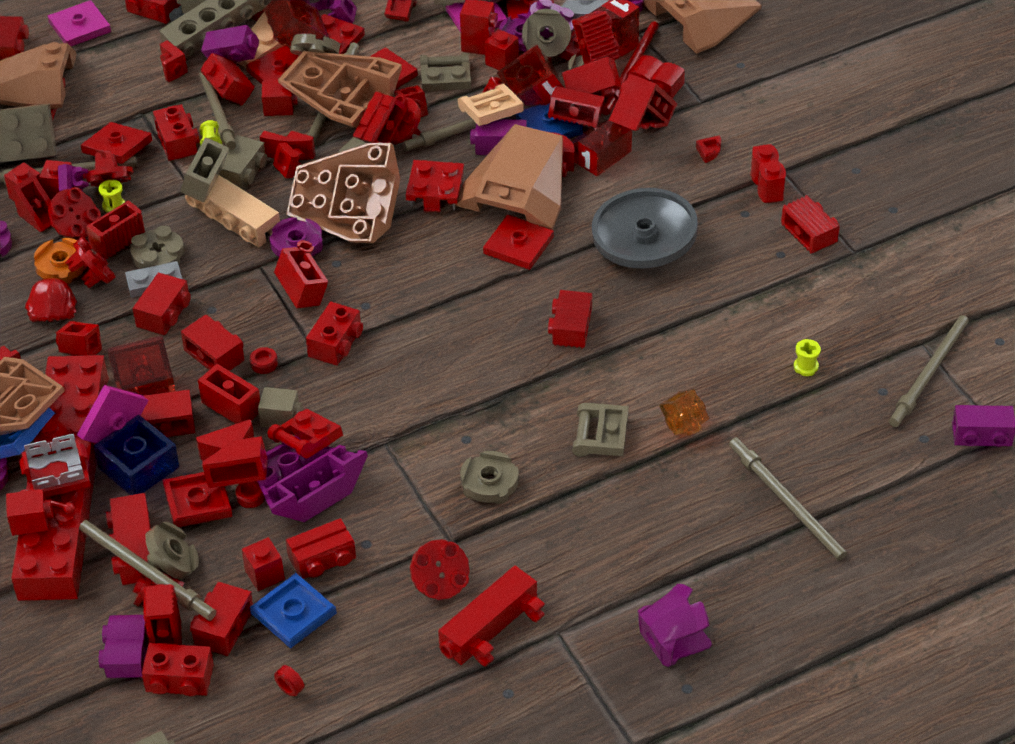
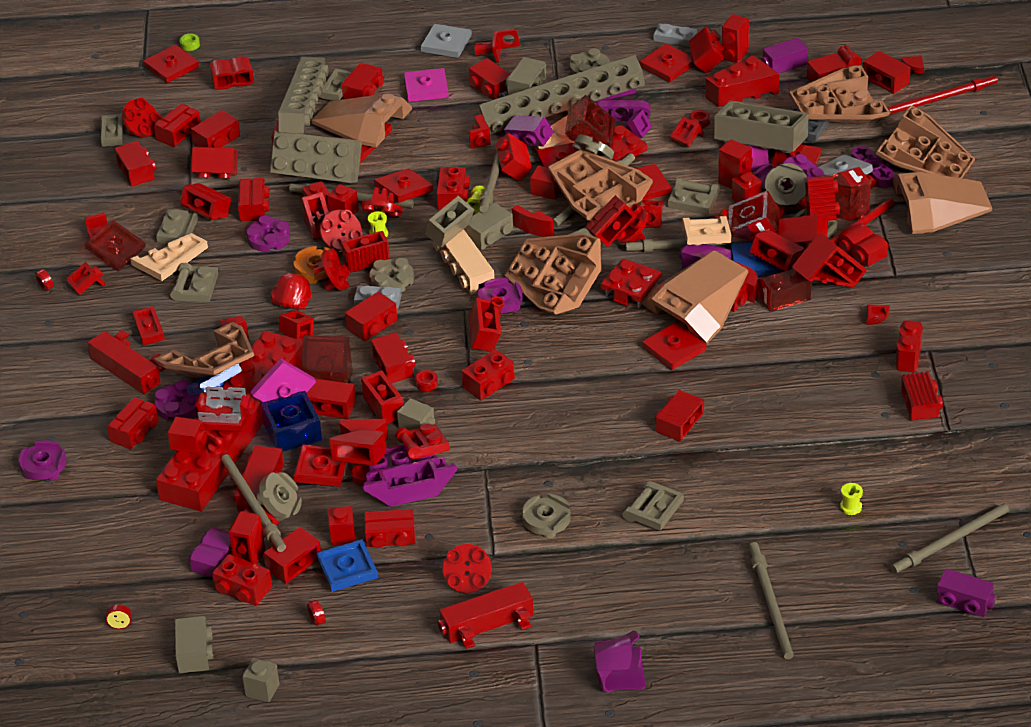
camera: 25 degrees right, 5 degrees down
(71, 177) = (350, 201): magenta tile -> none
(287, 159) = (527, 230): red tile -> none
(644, 228) = (777, 361): dark grey dish -> none
(684, 412) = (723, 511): clear orange brick -> none

